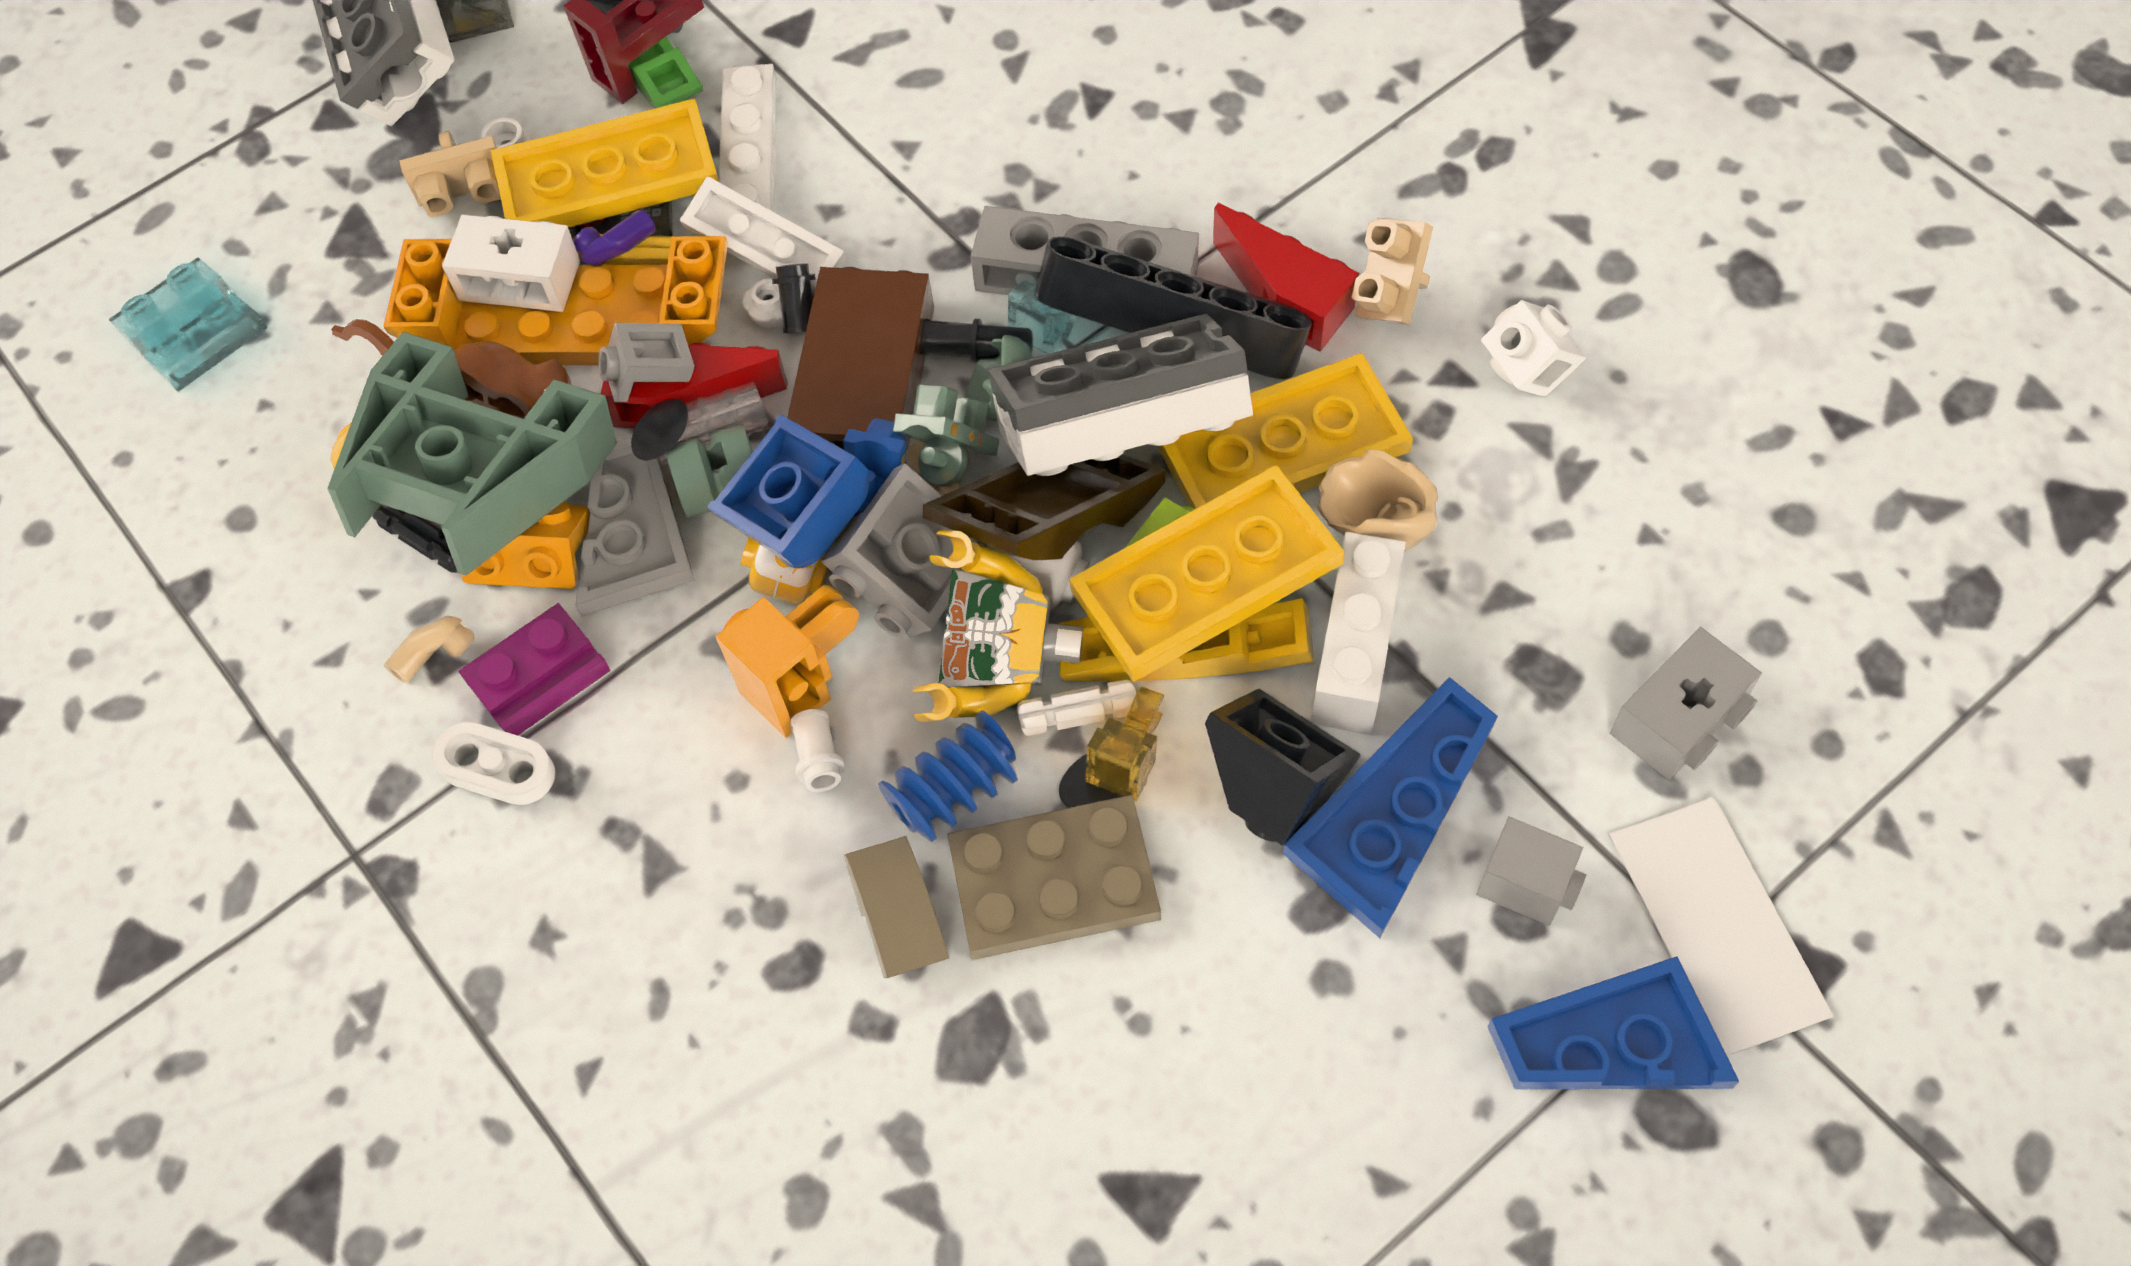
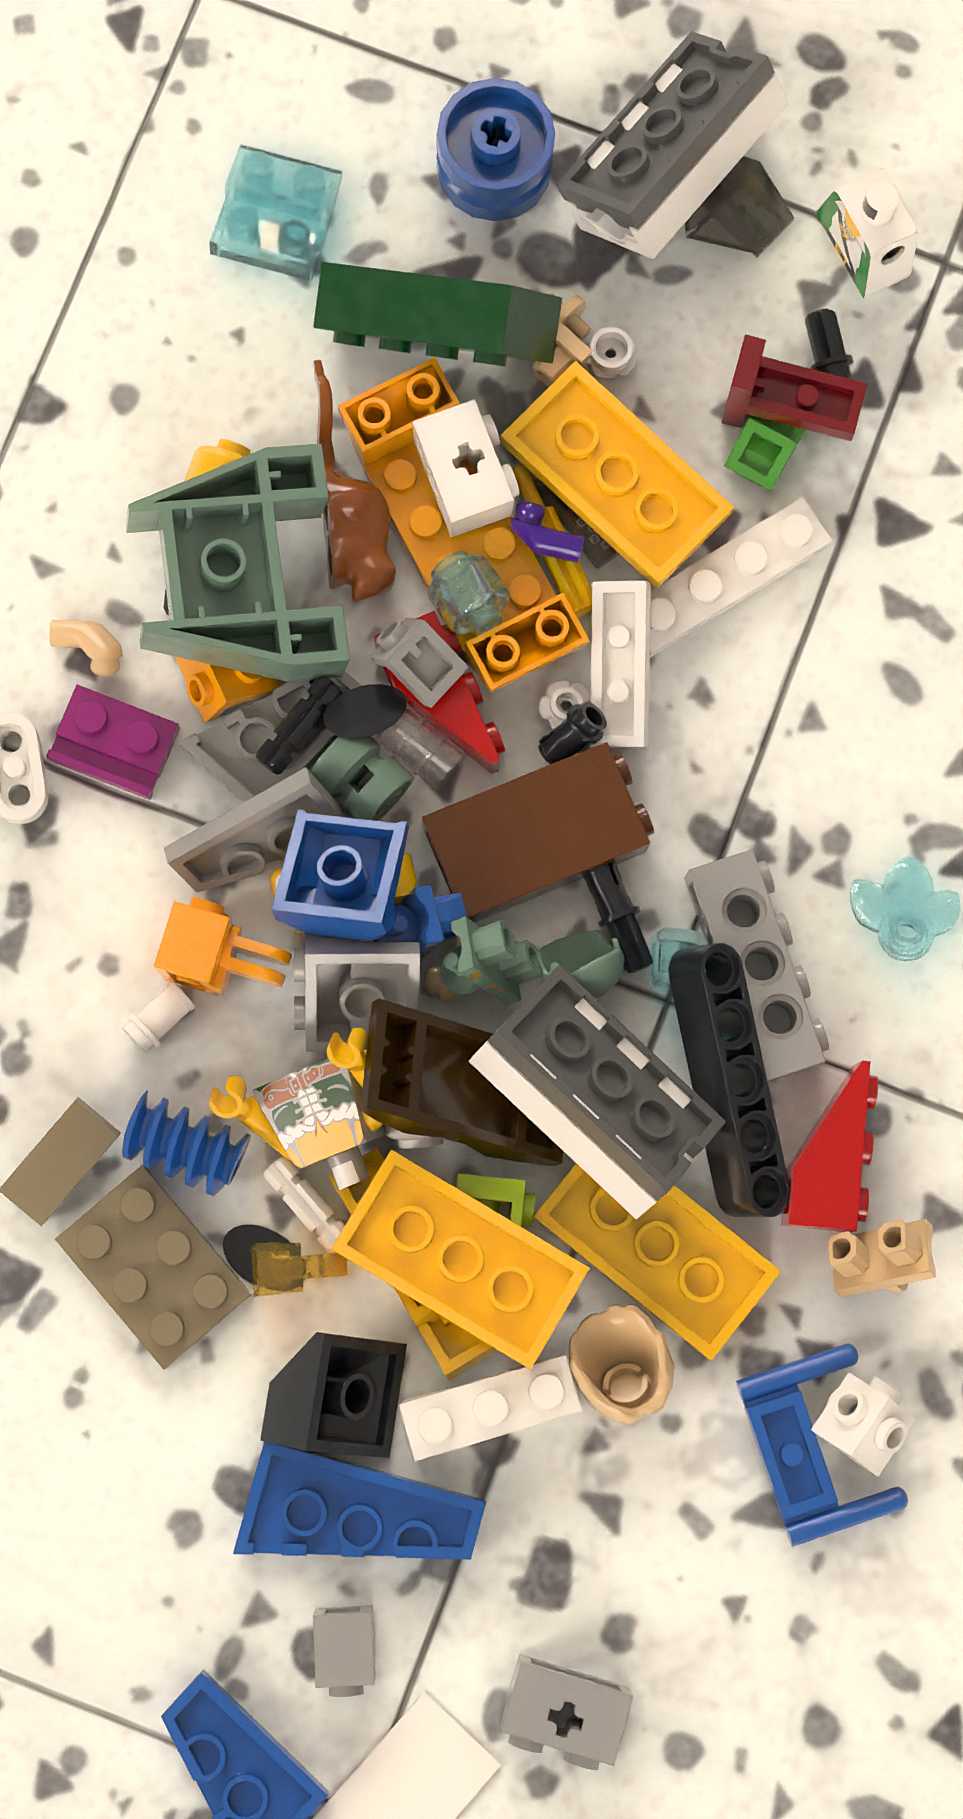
camera: 50 degrees right, 20 degrees up
(276, 137) = (495, 149): none -> blue wheel
(359, 223) = (437, 313): none -> dark green wedge
(617, 297) = (468, 593): none -> clear light blue head
(633, 492) = (298, 726): none -> black axle
(701, 577) = (249, 834): none -> light grey wing
(1106, 147) = (907, 901): none -> clear light blue plate
(1532, 419) = (794, 1455): none -> blue plate

